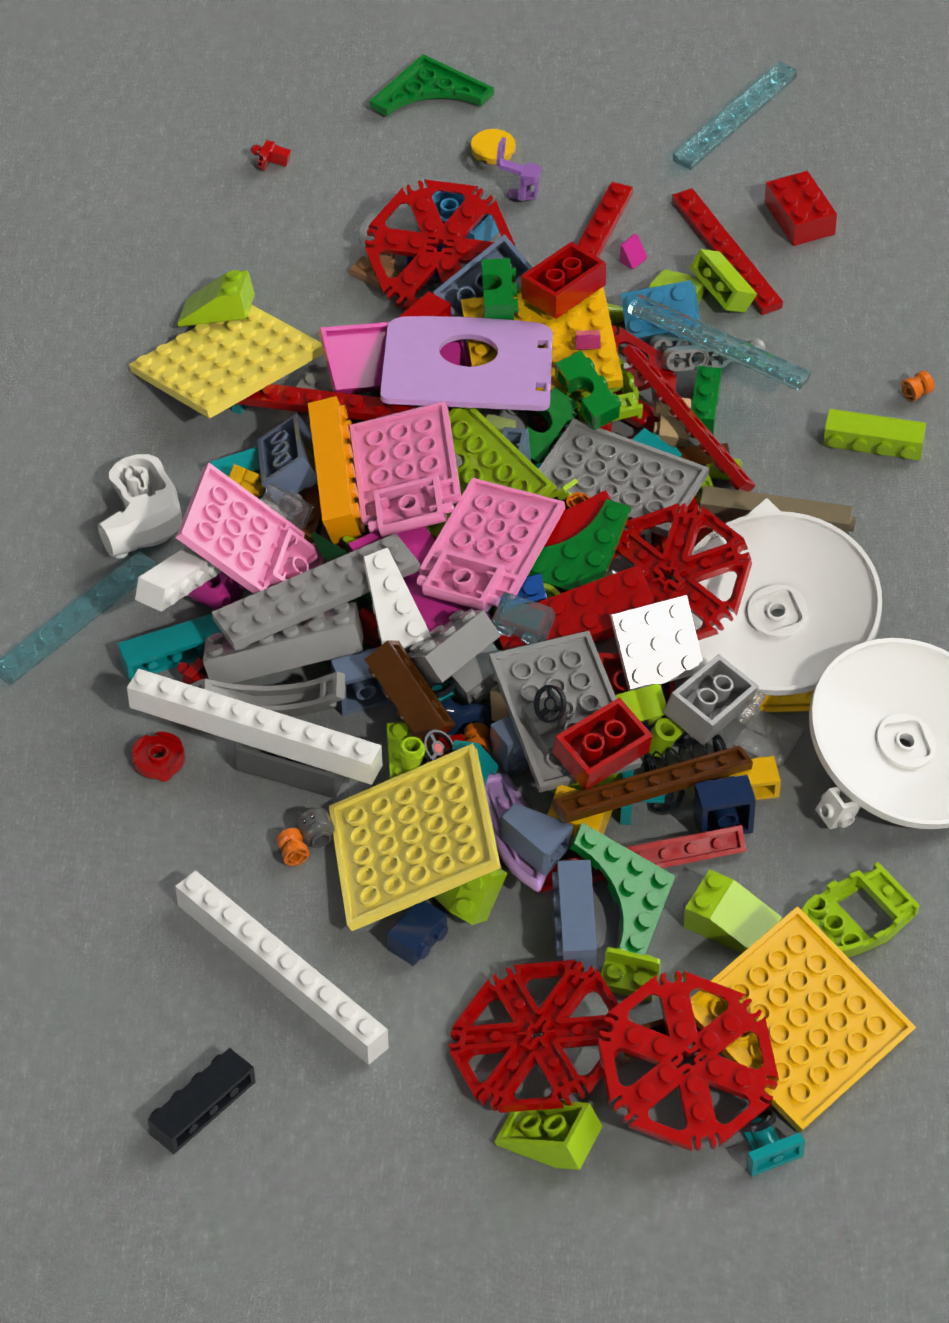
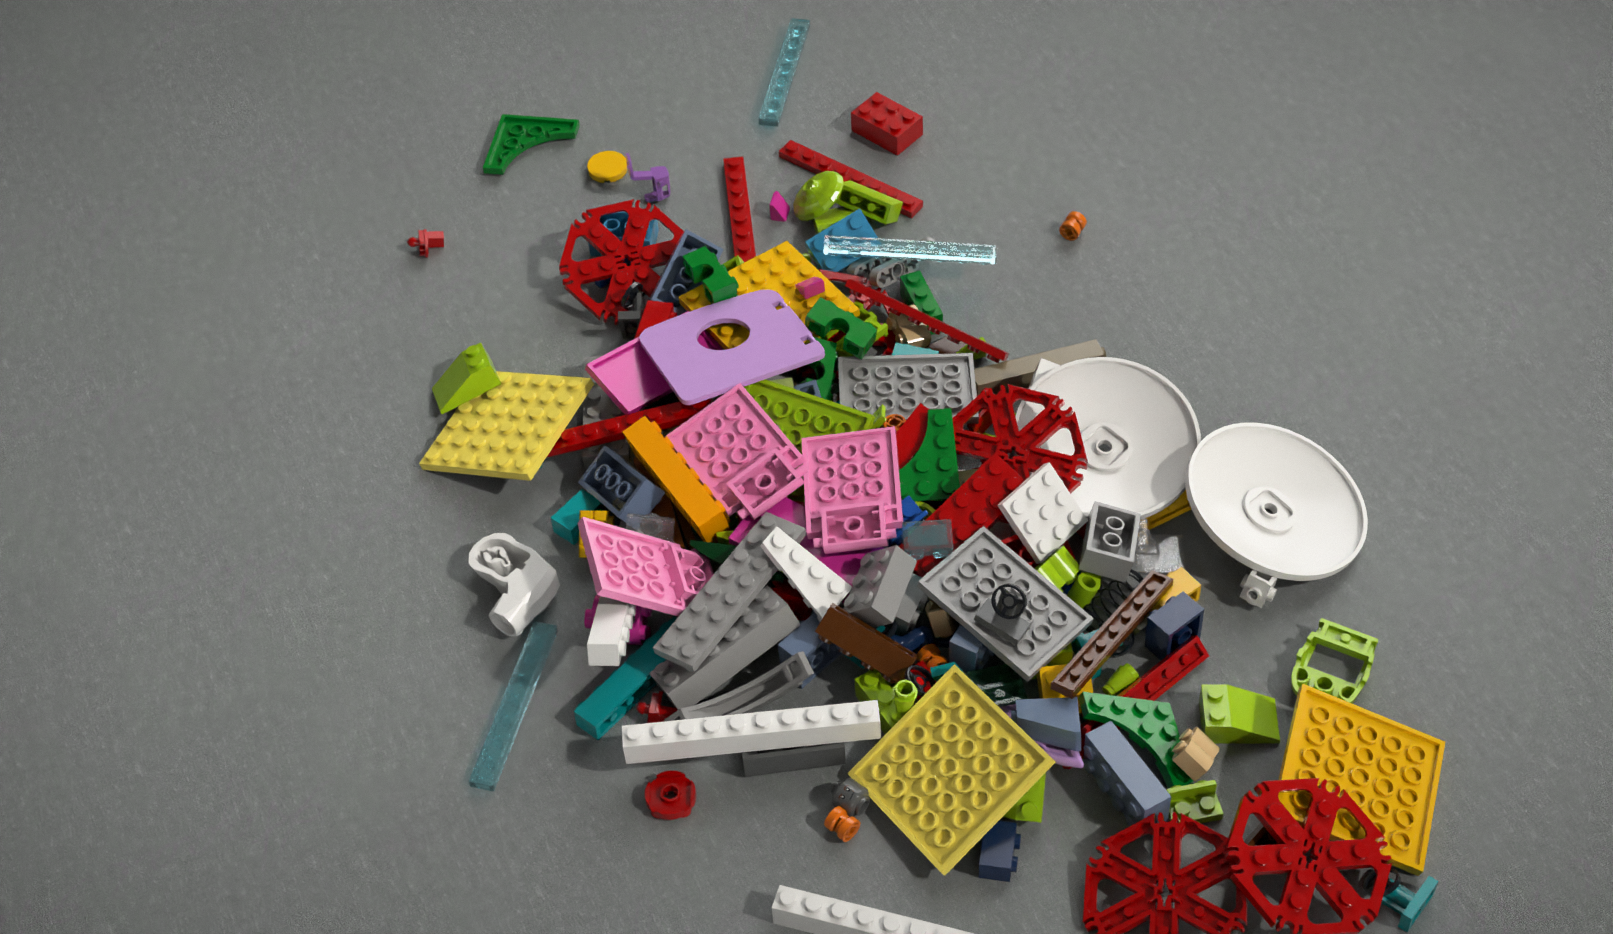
camera: 25 degrees left, 0 degrees up
(363, 270) = (571, 306): medium nougat hinge -> none
(401, 302) = (630, 320): none -> dark grey piece
(513, 786) = (999, 684): none -> clear green slope
(563, 280) = (760, 247): red brick -> none
(602, 744) = (1061, 617): red brick -> none
(641, 834) = (1120, 680): none -> lime cone
(658, 927) = (1195, 753): none -> tan brick
(675, 253) = (817, 195): none -> lime hat
(874, 434) = (1067, 276): lime brick -> none

